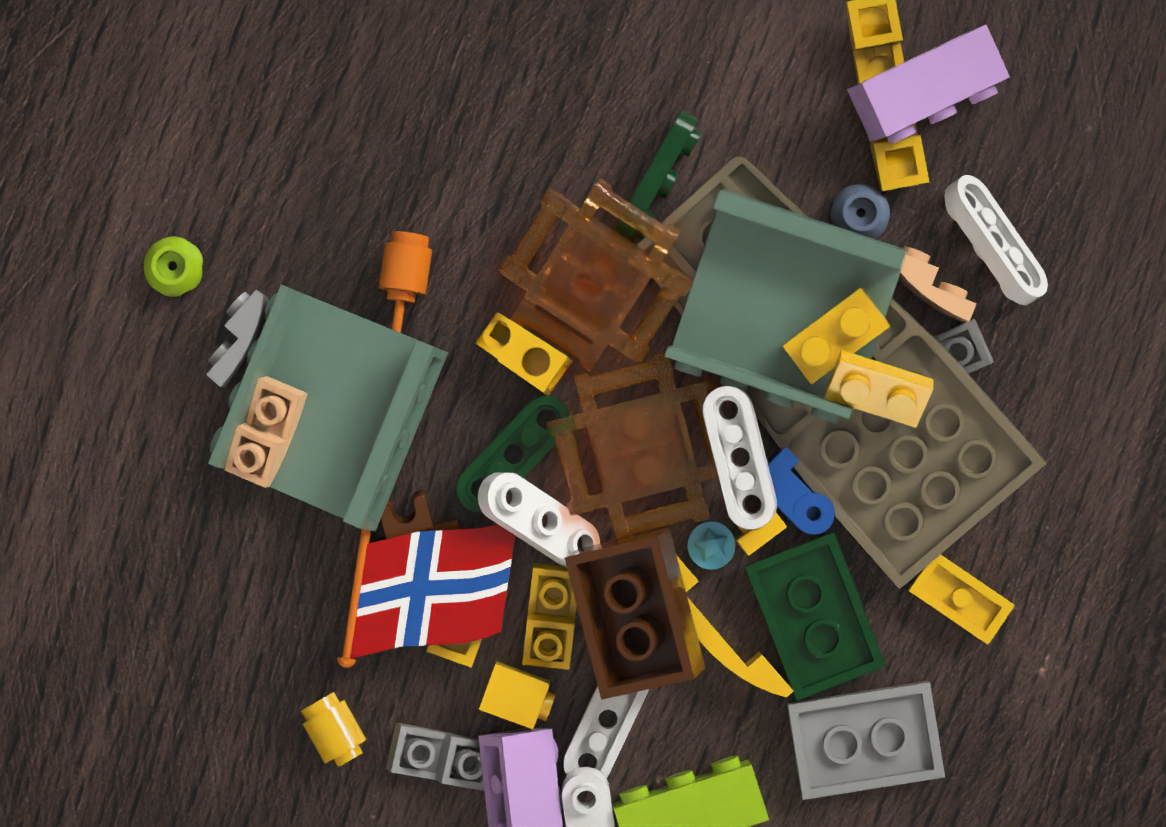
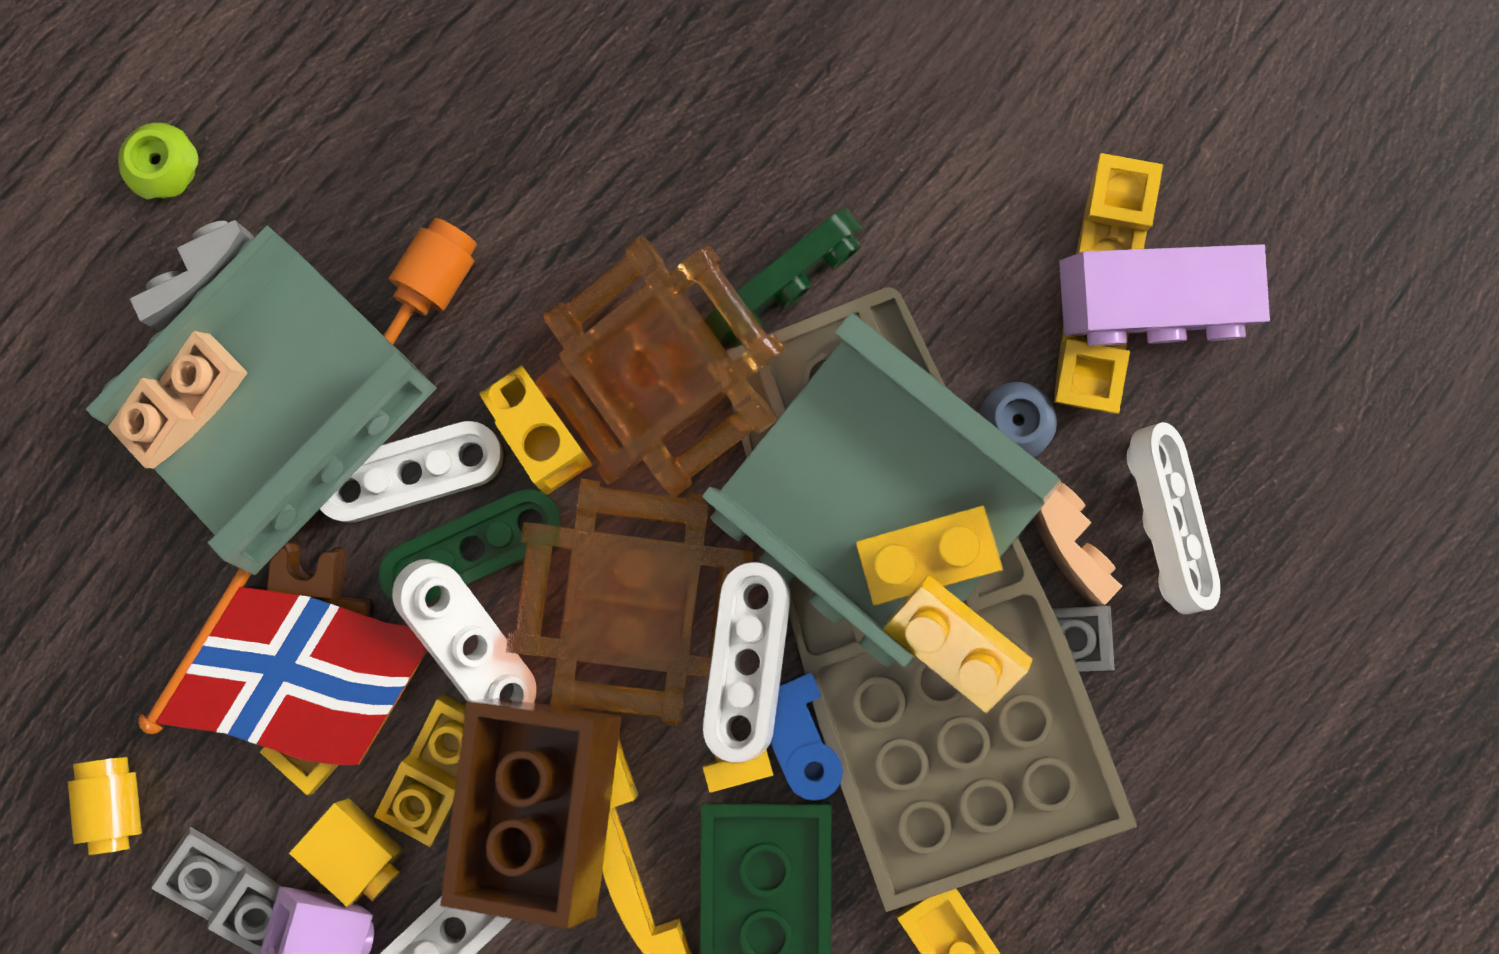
camera: 25 degrees right, 5 degrees down
(470, 412) = (442, 471): none -> white plate
(711, 545) = (671, 760): medium azure tile -> none

